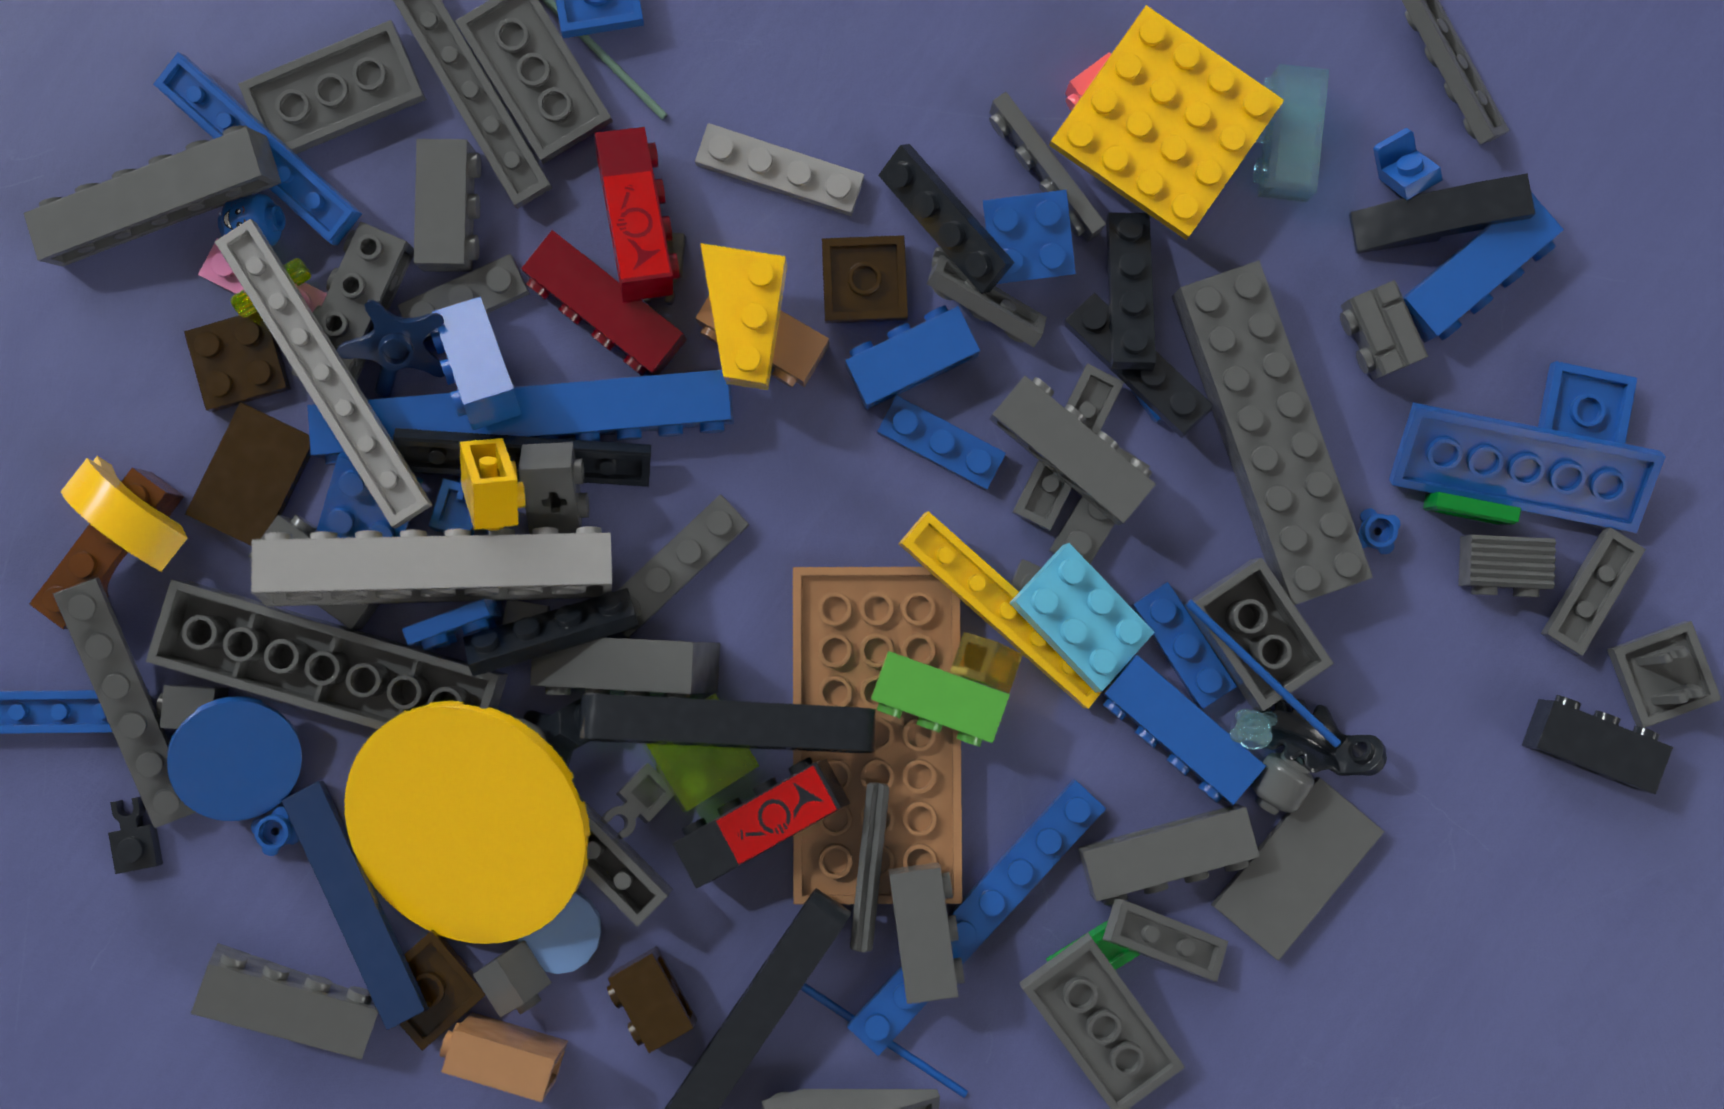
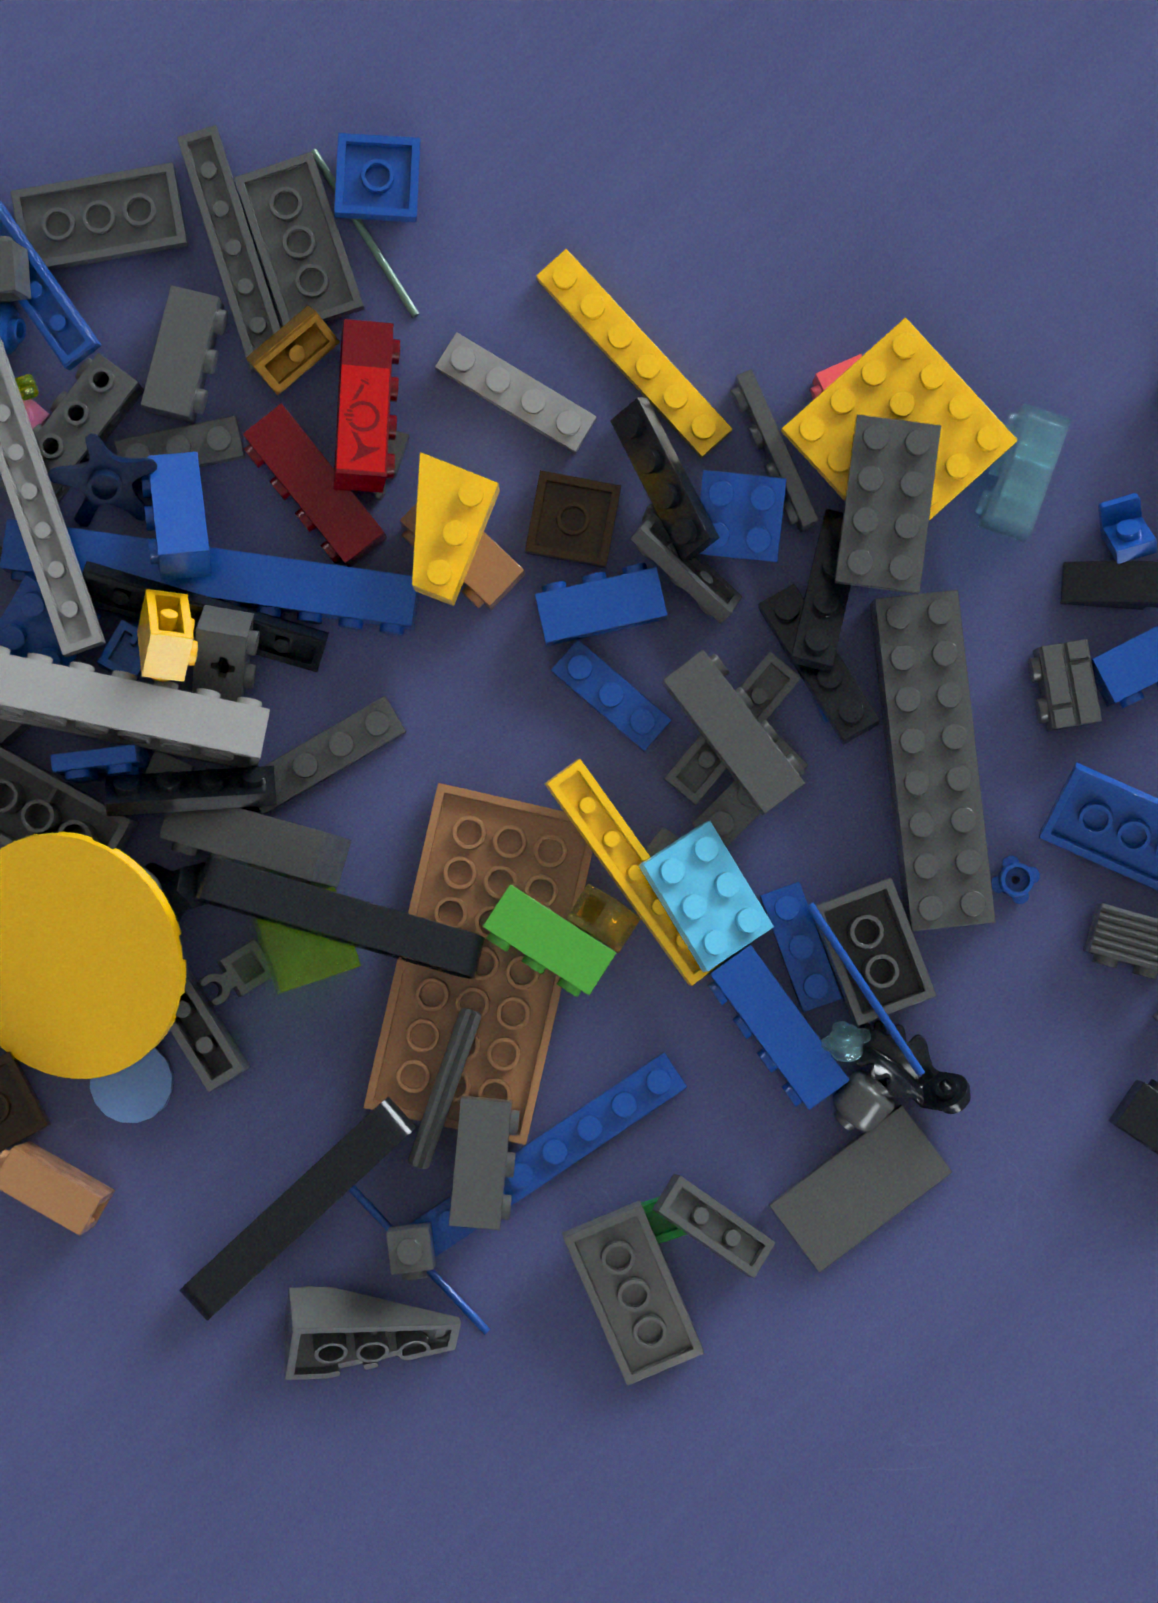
camera: 20 degrees right, 0 degrees up
(513, 980) = (77, 1117): dark grey brick -> none
(552, 175) = (293, 350): none -> pearl gold slope
(651, 1000) = (204, 1168): dark brown brick -> none
(761, 822) = (349, 1020): brick -> none
(874, 1036) = (411, 1250): none -> dark grey brick
(885, 105) = (633, 353): none -> yellow plate
(1168, 853) = (737, 1143): dark grey brick -> none
(1173, 190) = (887, 504): none -> dark grey plate
(1471, 508) = (1111, 878): green tile -> none

